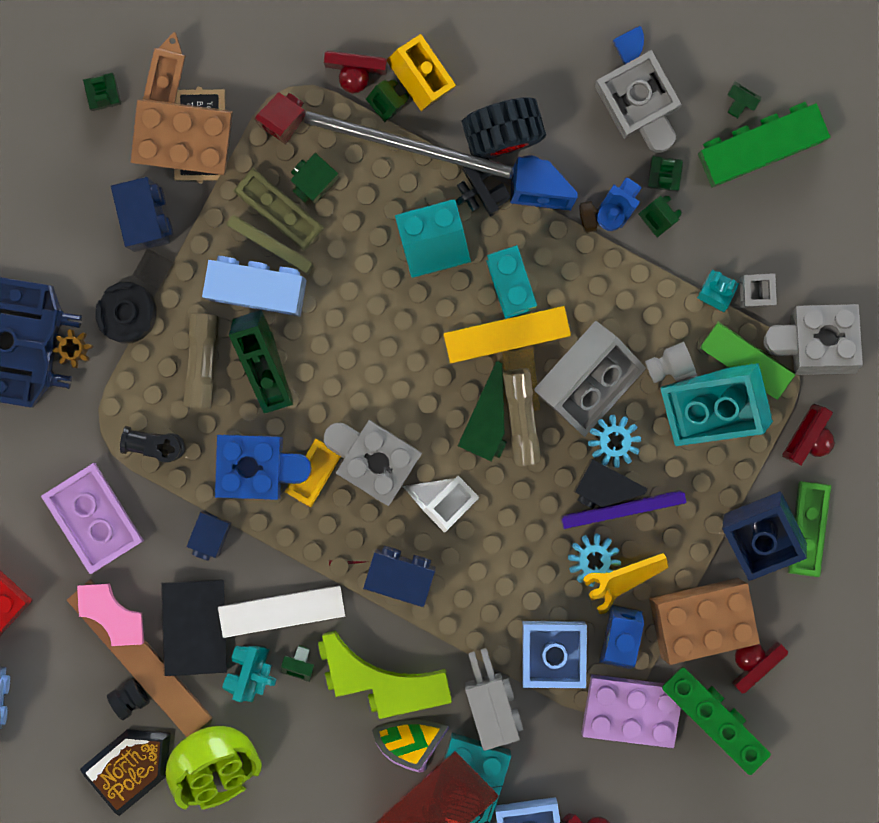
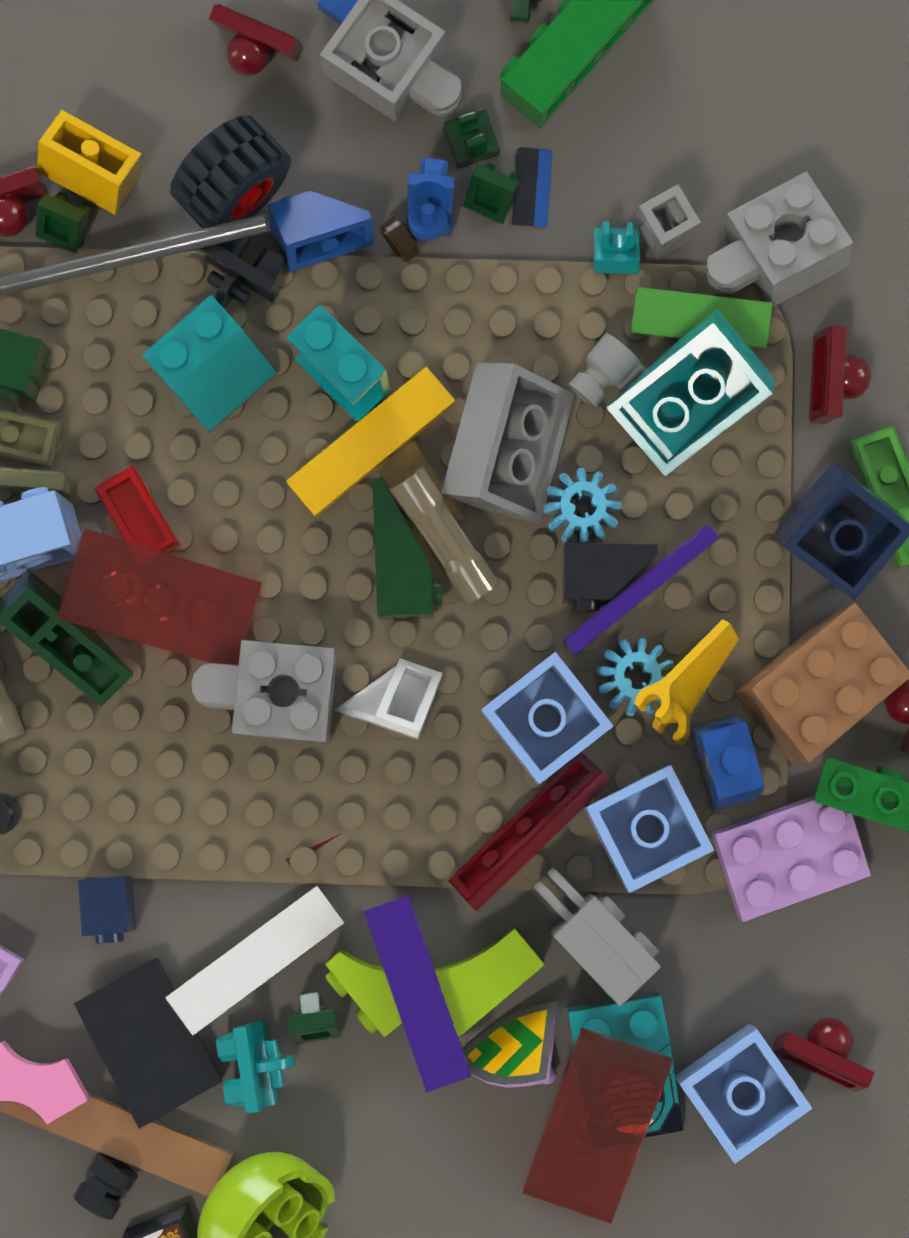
camera: 20 degrees left, 5 degrees down
(256, 467) = (123, 781): blue brick -> none
(322, 463) = (205, 752): yellow tile -> none
(330, 369) = (158, 599): none -> clear red tile
(342, 308) = (136, 511): none -> red tile
(368, 681) = (417, 993): none -> dark purple tile
(400, 576) = (387, 829): dark blue brick -> none
(482, 619) = (529, 831): none -> dark red tile
(527, 558) = (546, 718): none -> light blue brick
(556, 47) = (251, 45): none -> dark red tile
(690, 220) = (533, 191): none -> black sticker

